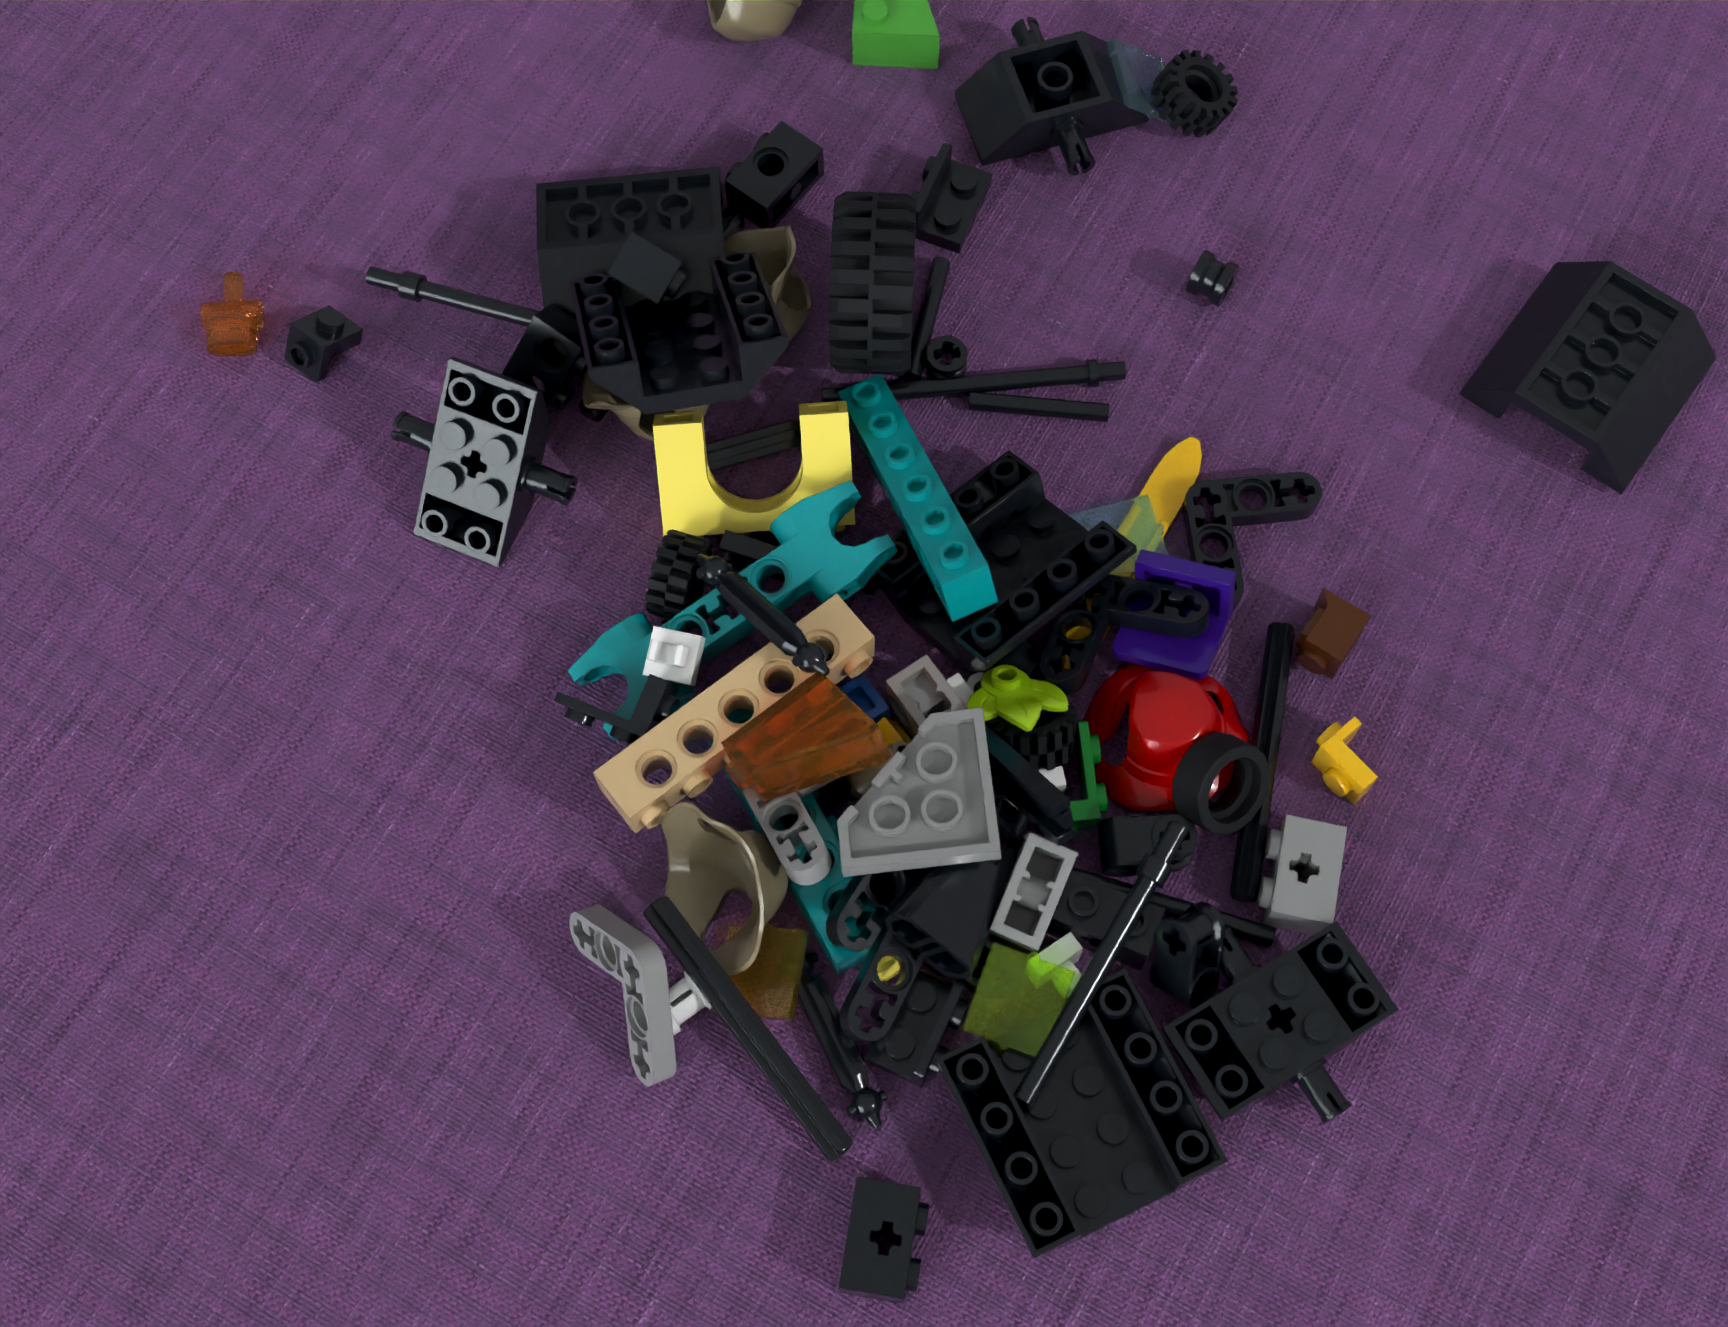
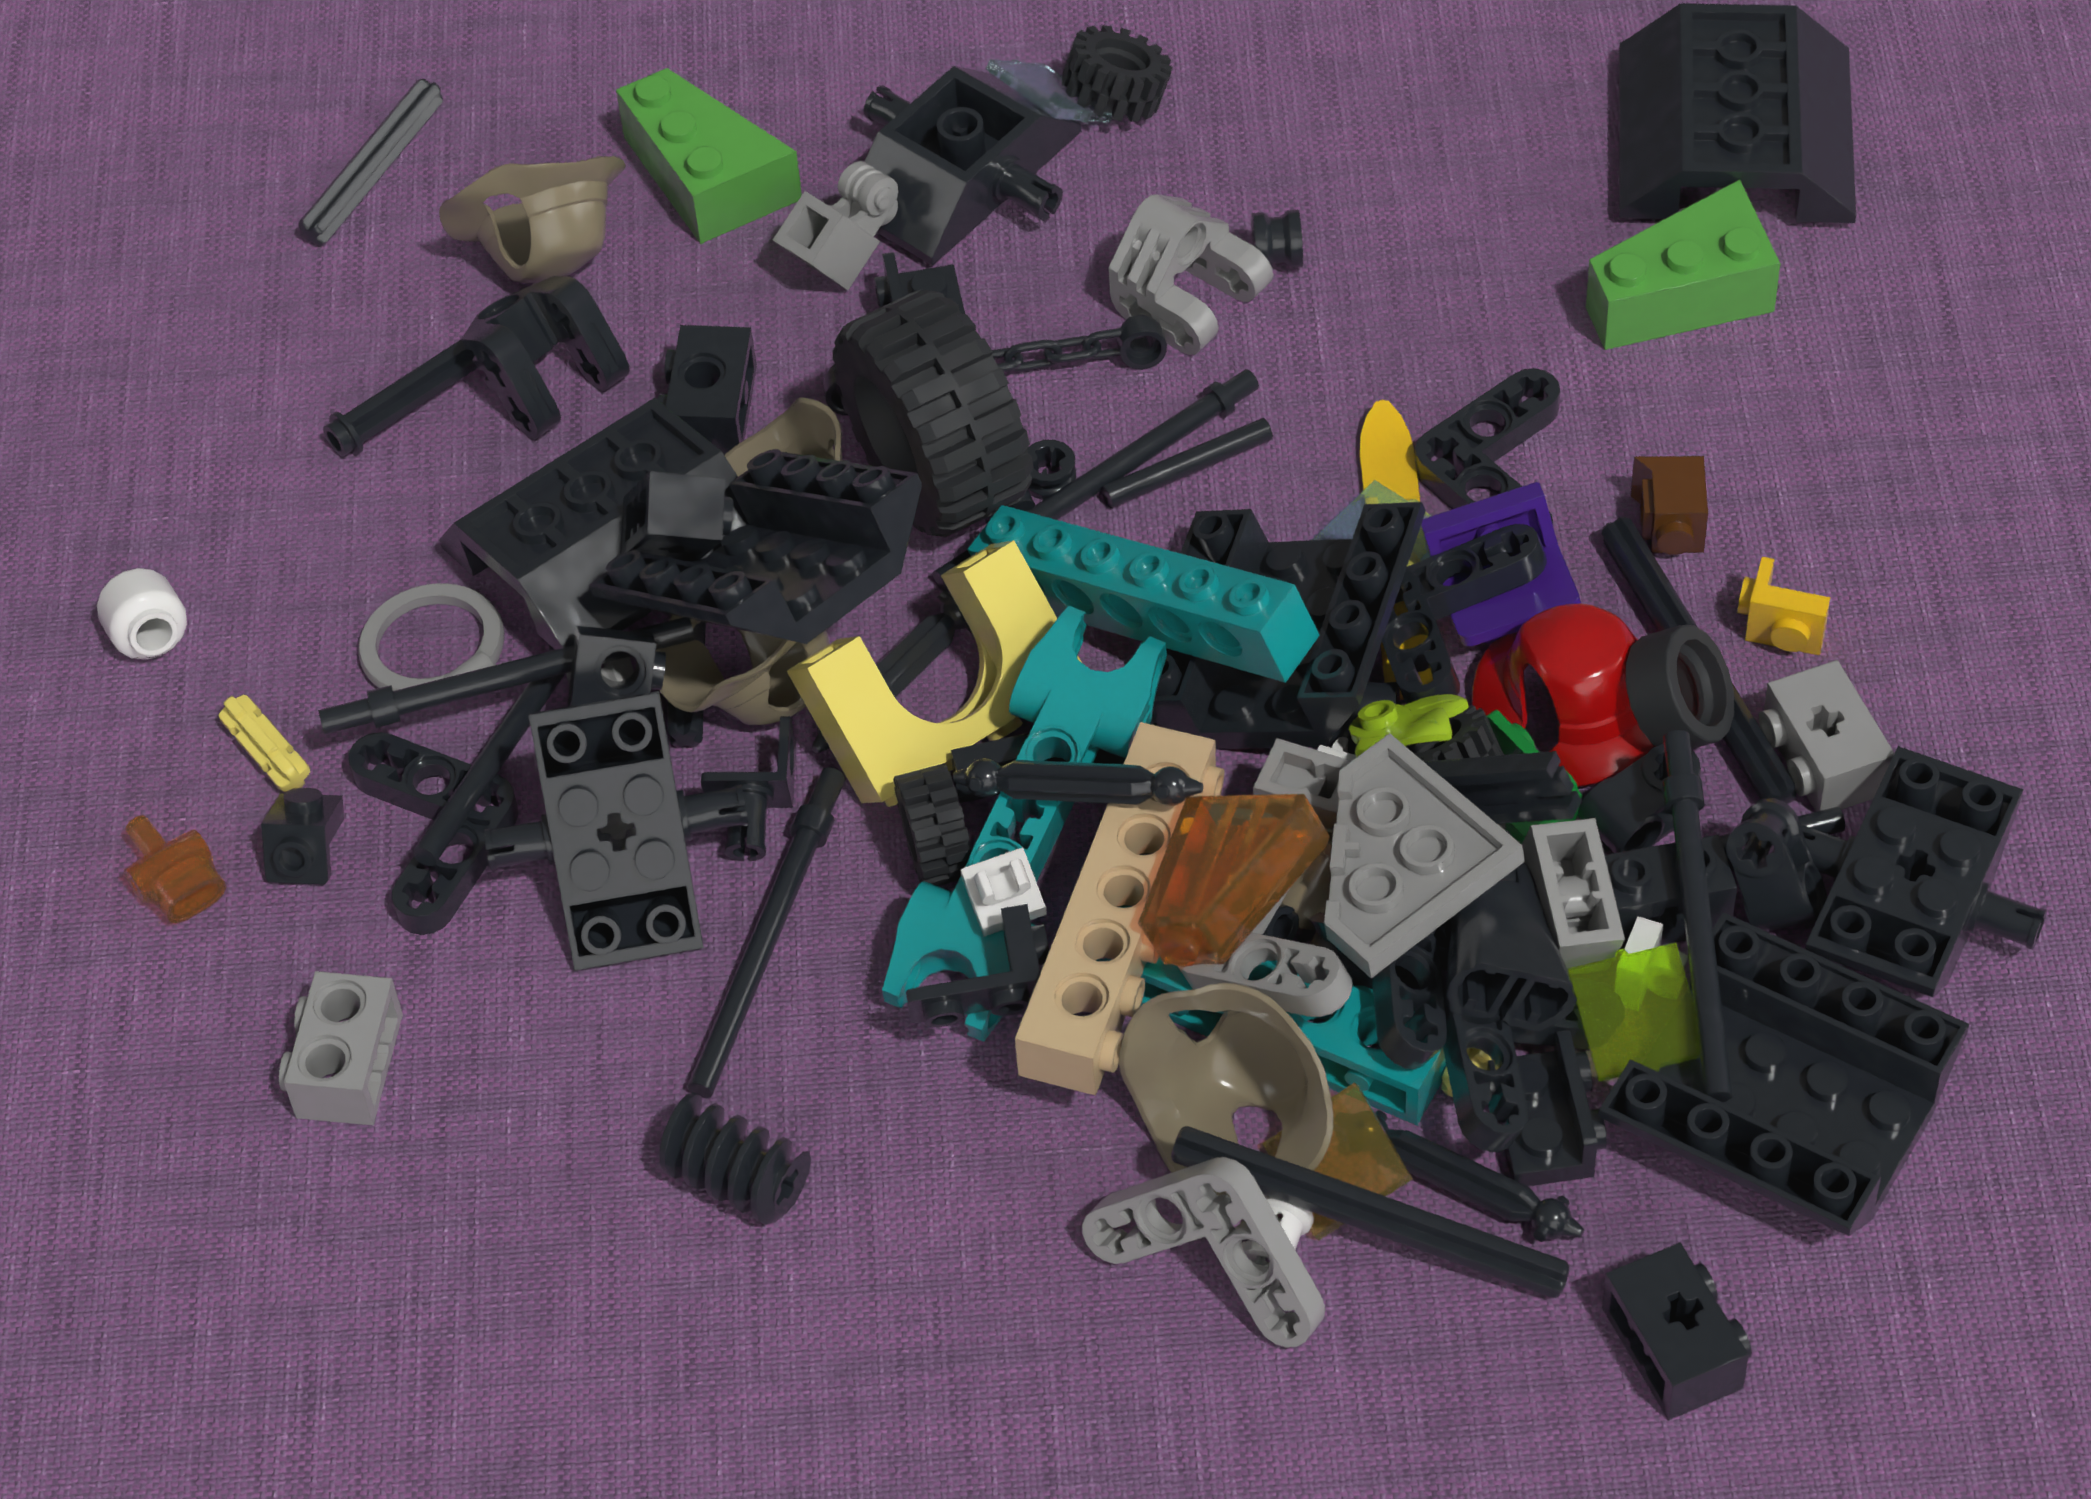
camera: 30 degrees left, 15 degrees down
(247, 511) = (353, 1048): none -> light grey brick
(334, 133) = (141, 614): none -> white head
(345, 264) = (264, 743): none -> light yellow axle
(396, 728) = (728, 1163): none -> black piece
(417, 389) = (415, 764): none -> black beam
(437, 369) = (484, 770): none -> black bar
(495, 288) = (424, 595): none -> light grey piece
(593, 482) = (760, 792): none -> black bracket
(597, 70) = (349, 431): none -> black axle
(616, 525) = (809, 832): none -> black bar
(683, 67) = (527, 326): none -> black piece
(927, 113) = (841, 235): none -> light grey brick
(1067, 303) = (1135, 353): none -> black piece
(1125, 240) = (1175, 237): none -> light grey piece
(1468, 465) = (1685, 273): none -> bright green wedge

